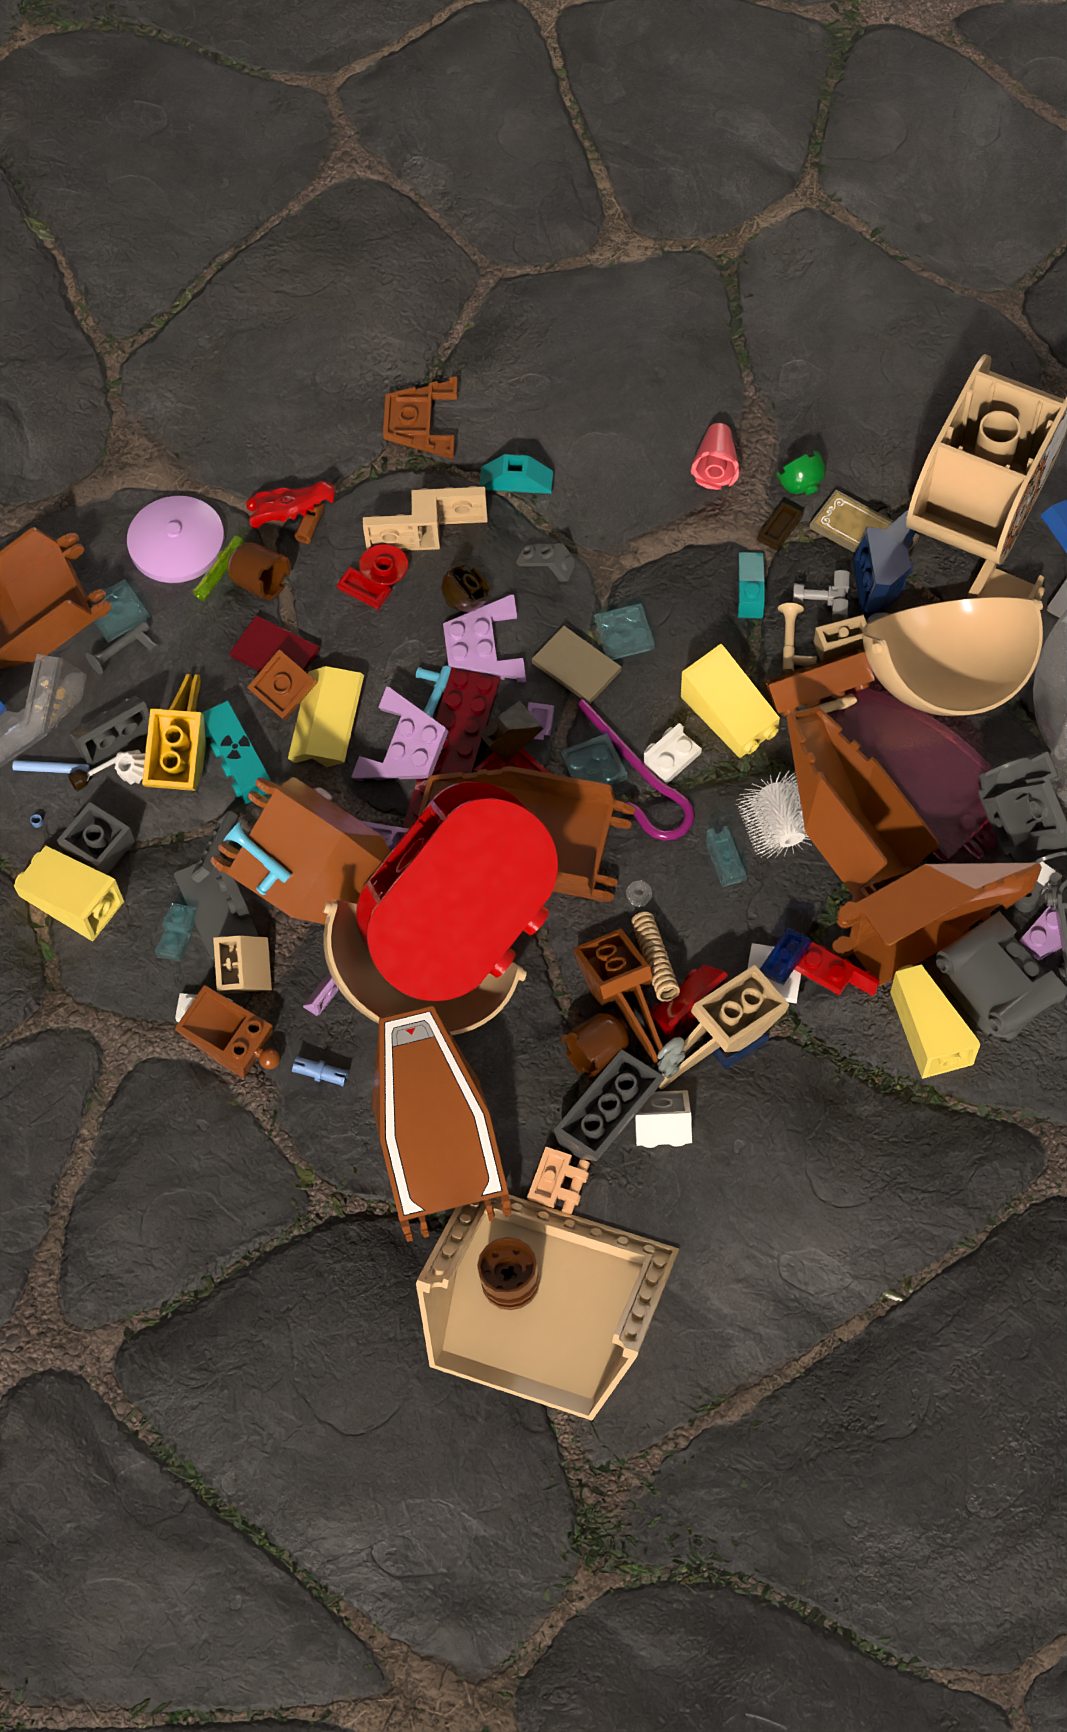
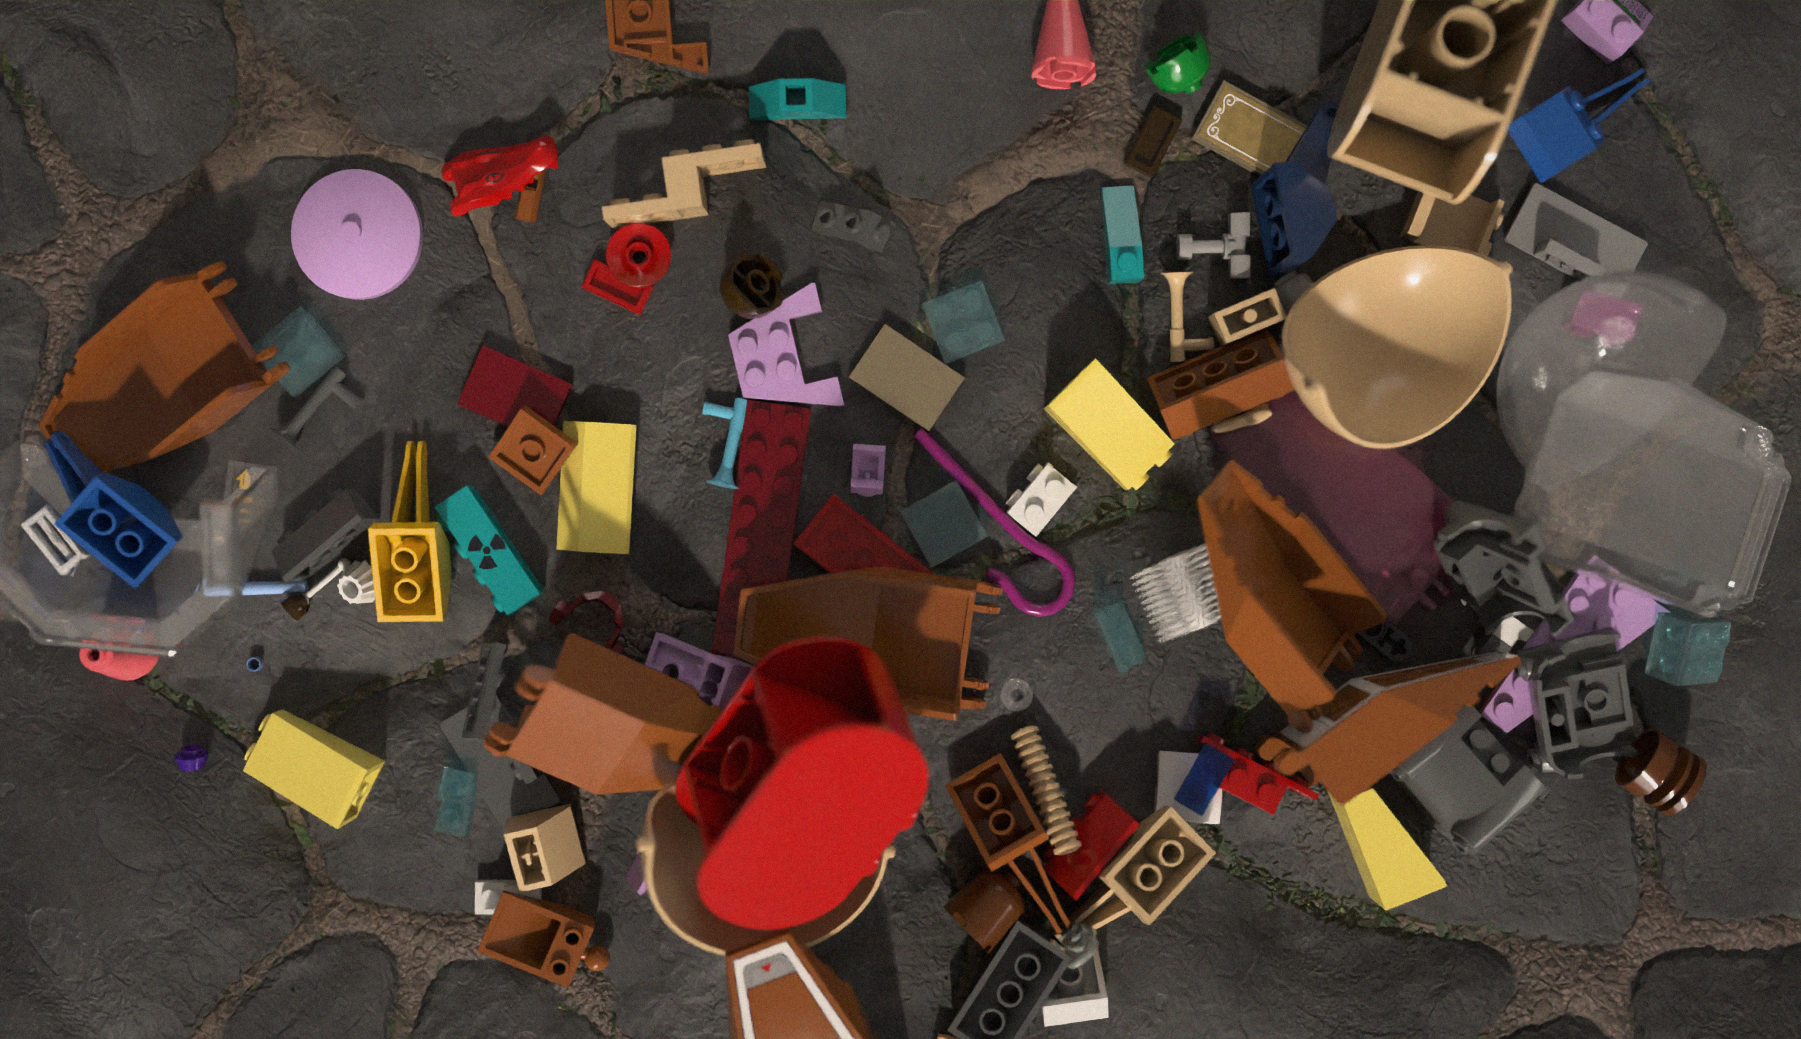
camera: 10 degrees left, 25 degrees up
(96, 839) = (333, 696): dark grey brick -> none
(217, 570) = (405, 311): clear neon green pin -> none
(258, 570) = (473, 283): reddish brown cylinder -> none
(276, 870) = (566, 758): medium azure piece -> none
(320, 1071) = (659, 964): medium blue pin -> none
(412, 748) = (714, 527): lavender wing -> none
(511, 731) = (834, 496): dark brown slope -> none

